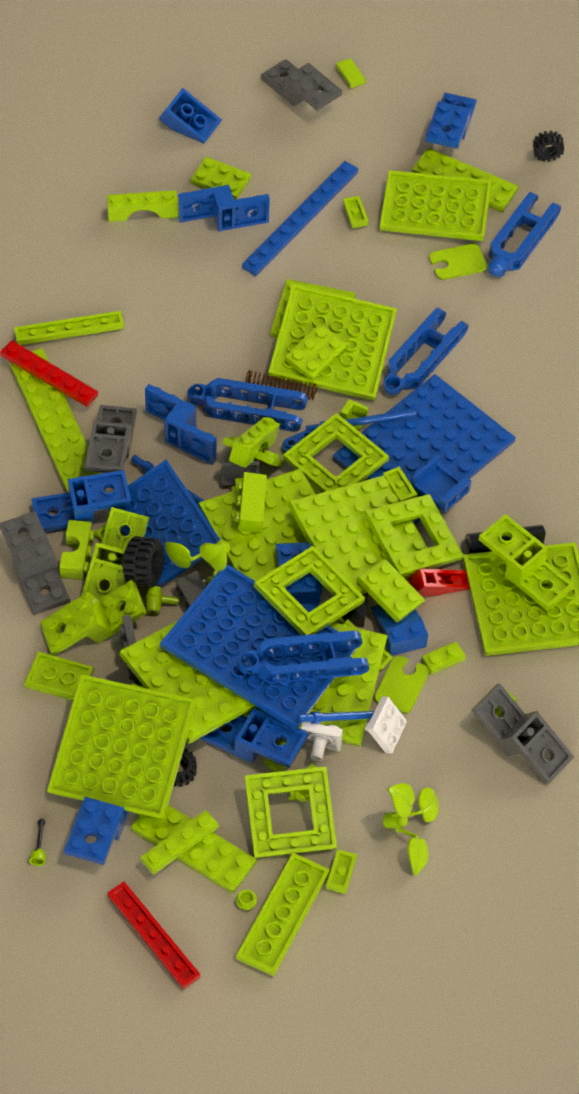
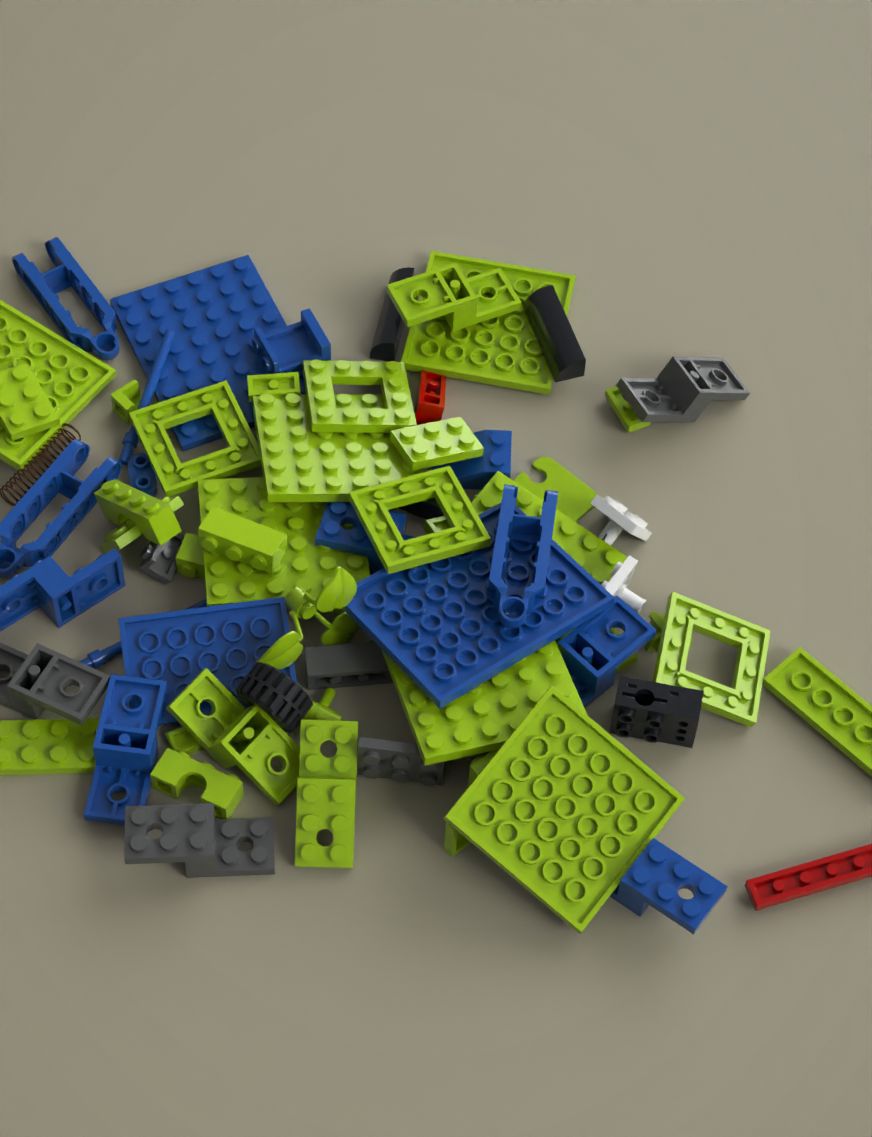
camera: 70 degrees left, 0 degrees up
(38, 855) = (670, 975): lime hinge -> none
(56, 675) = (392, 870): lime tile -> none
(179, 842) = (712, 797): lime plate -> none
(210, 857) = (723, 782): lime plate -> none
(230, 788) = (656, 712): none -> black piece
(246, 899) = (810, 752): lime plate -> none
(317, 717) = (606, 572): blue bar -> none
(341, 871) = (799, 633): lime plate -> none
(403, 799) = (755, 553): lime plant -> none
(444, 657) = (535, 435): lime plate -> none
(532, 639) = (554, 334): none -> black brick

